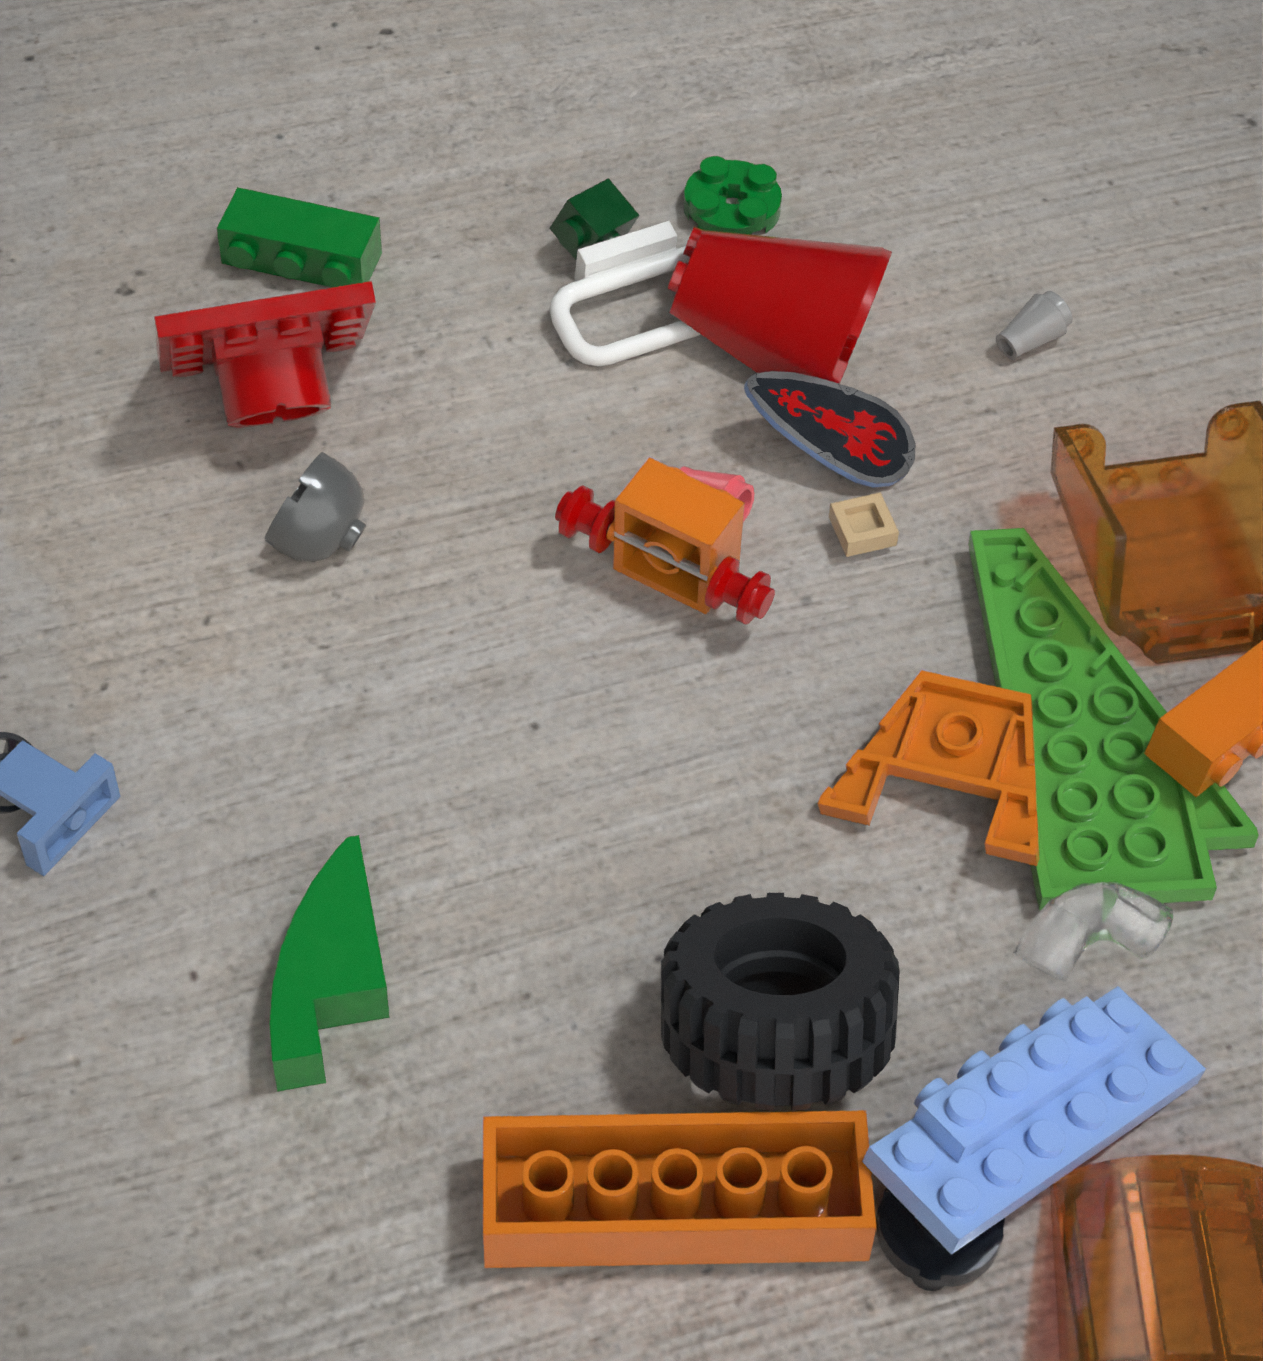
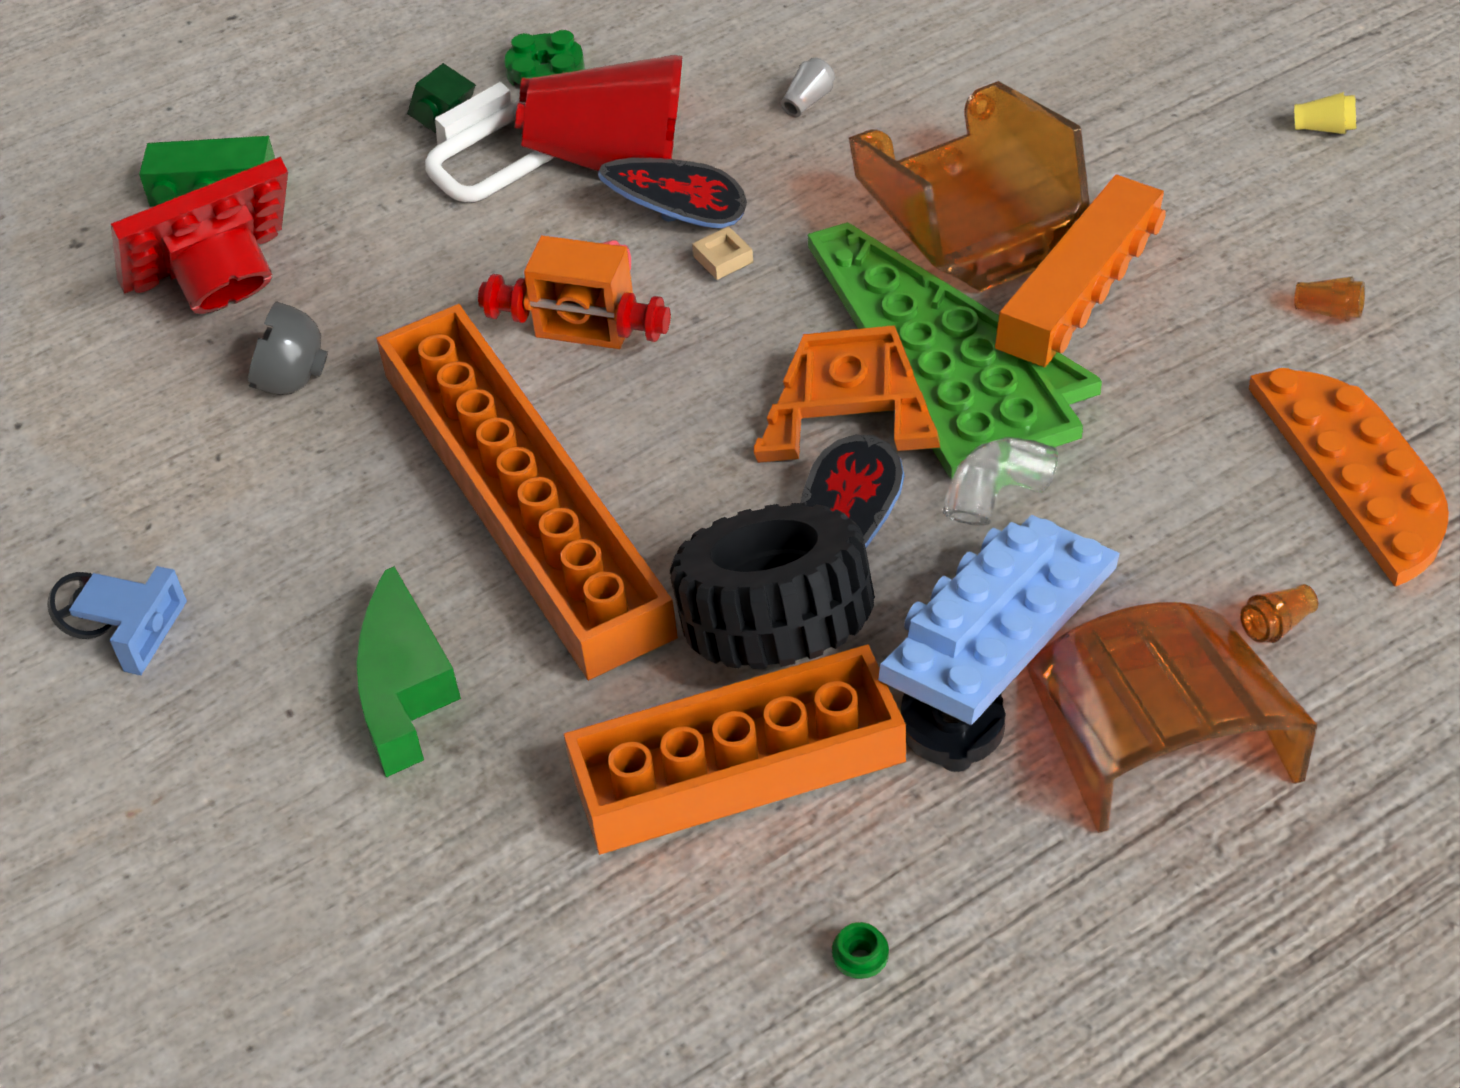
camera: 10 degrees left, 5 degrees down
(539, 781) = (528, 493): none -> orange brick
(917, 891) = (858, 478): none -> shield

